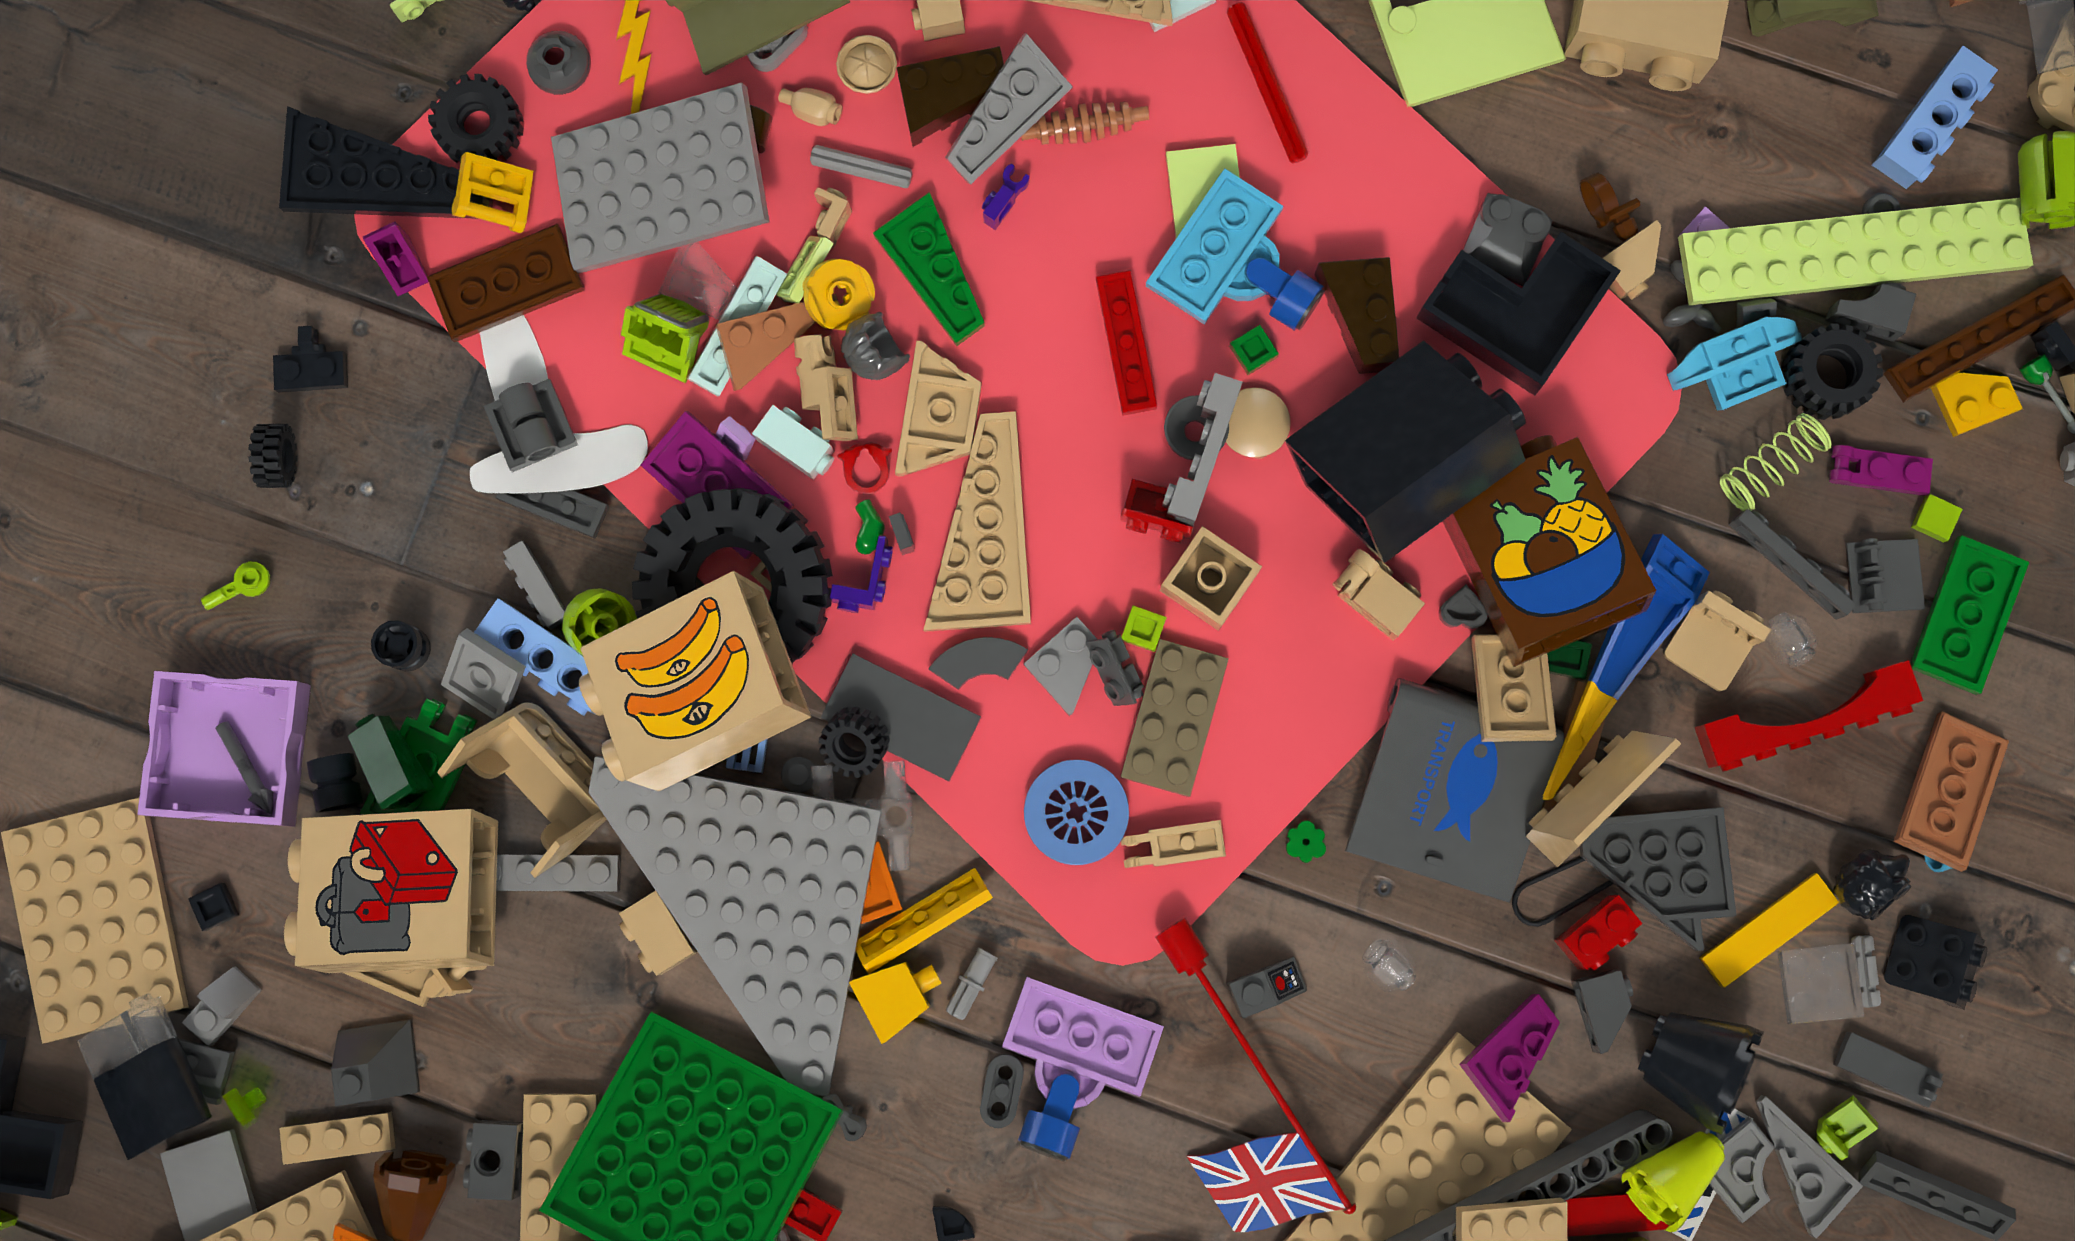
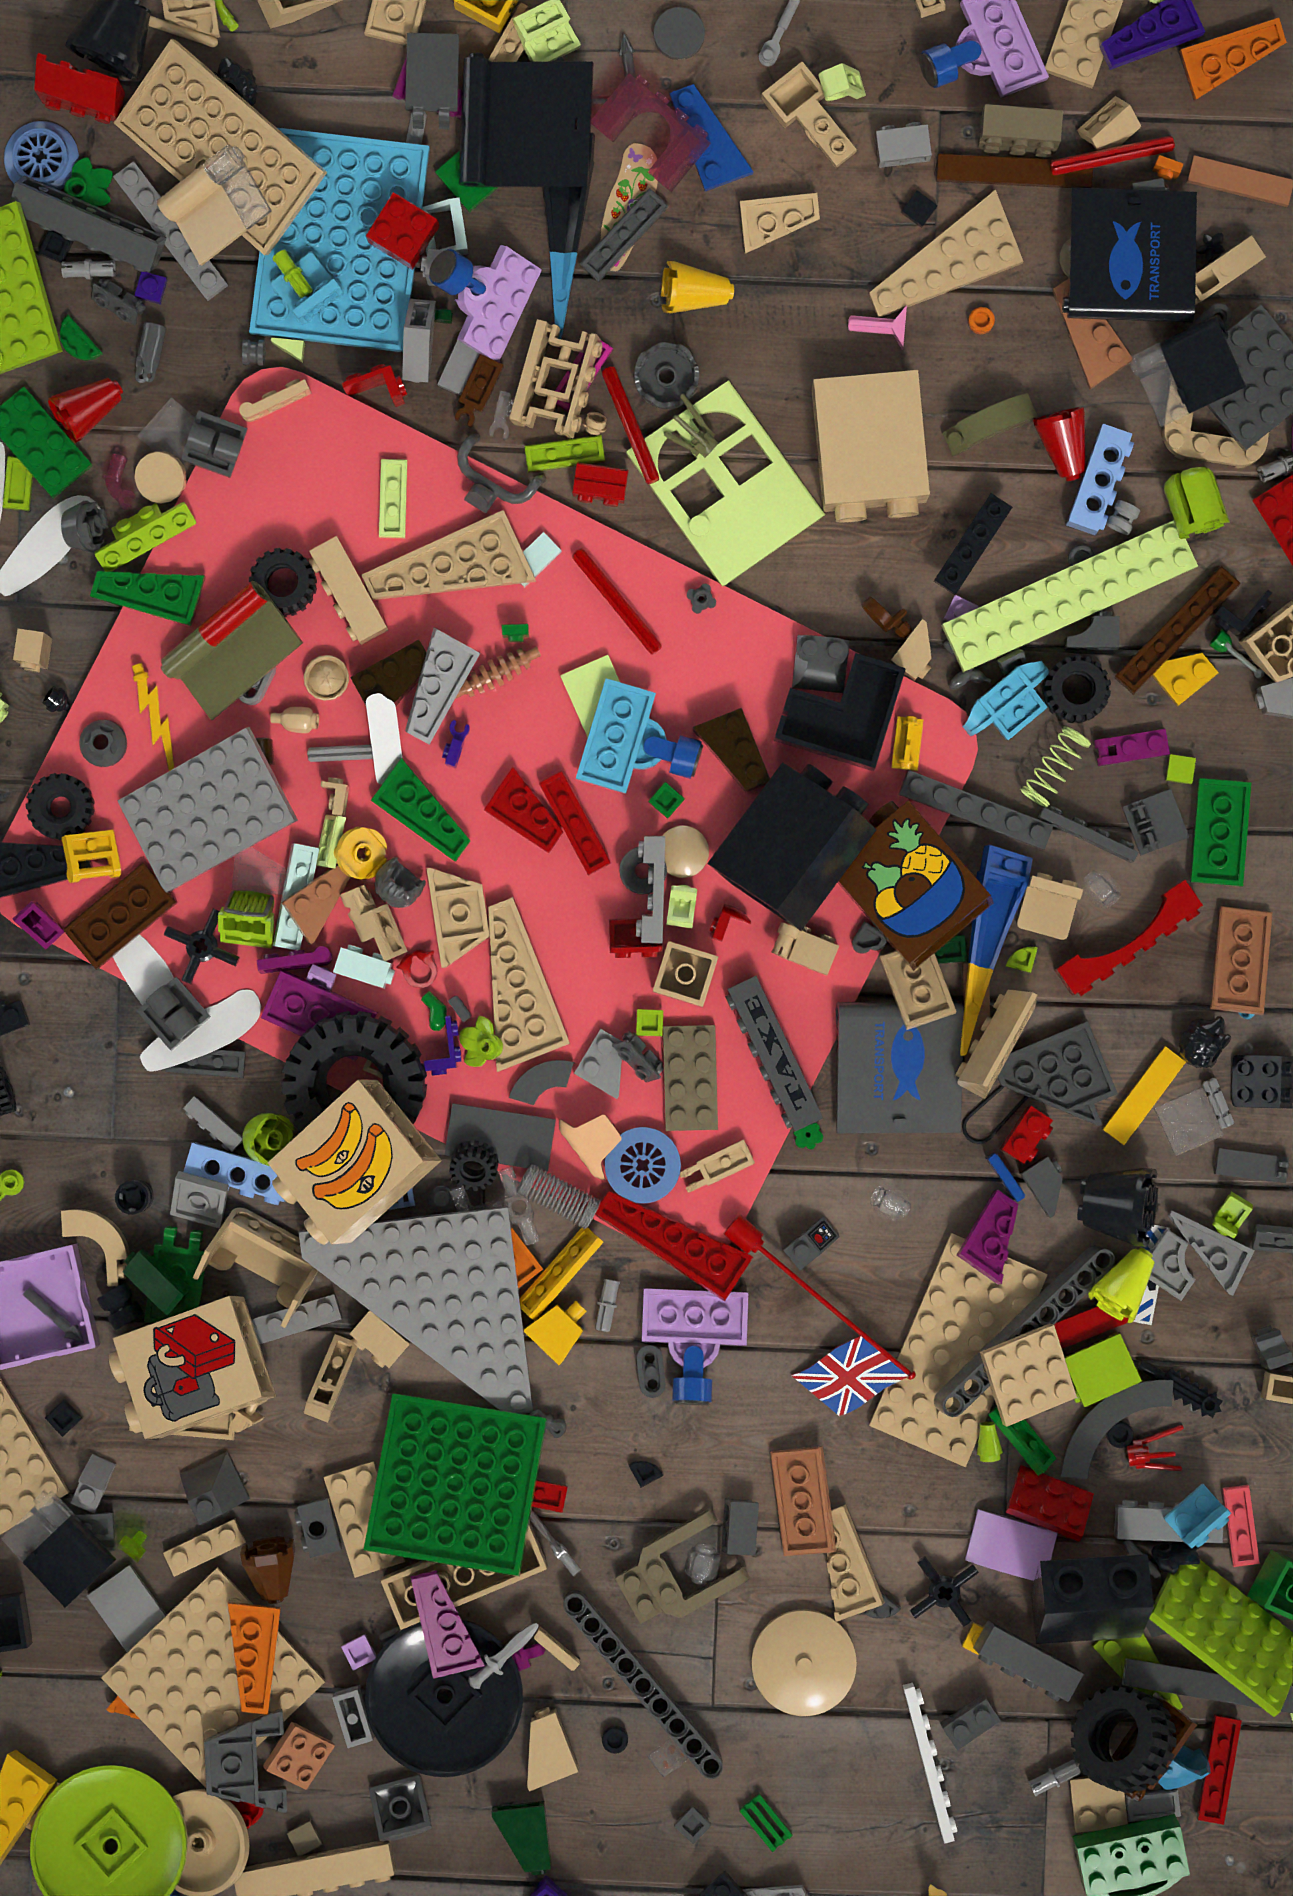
camera: 20 degrees left, 5 degrees up
(347, 680) = (105, 1232): none -> tan arch
(575, 966) = (330, 1378): none -> tan slope
(589, 362) = (192, 950): none -> black bar
(709, 406) = (296, 960): none -> magenta plate
(914, 585) = (480, 1042): none -> lime plate
(916, 152) = (383, 735): none -> white sticker
(925, 783) = (528, 1180): none -> light grey piece
(1019, 759) = (592, 1142): none -> light nougat piece
(1063, 309) = (522, 811): none -> red wing
(1105, 950) = (692, 1253): none -> red wing
(1126, 79) = (515, 632): none -> green plate
(1232, 490) = (681, 906): none -> yellowish green bracket
(1275, 529) = (720, 924): none -> red plate
(1295, 720) = (775, 1054): none -> dark grey brick
(1370, 118) = (699, 605): none -> dark grey plate
(1553, 980) = (1006, 1177): none -> blue tile
(1589, 373) = (907, 743): none -> yellow hinge
(1655, 488) = (976, 810): none -> dark grey plate
(1657, 700) = (1022, 959): none -> lime tile
(1751, 144) = (973, 544): none -> black plate
(1904, 53) = (1064, 440): none -> red cone
(1956, 170) = (1123, 517): none -> light grey wheel

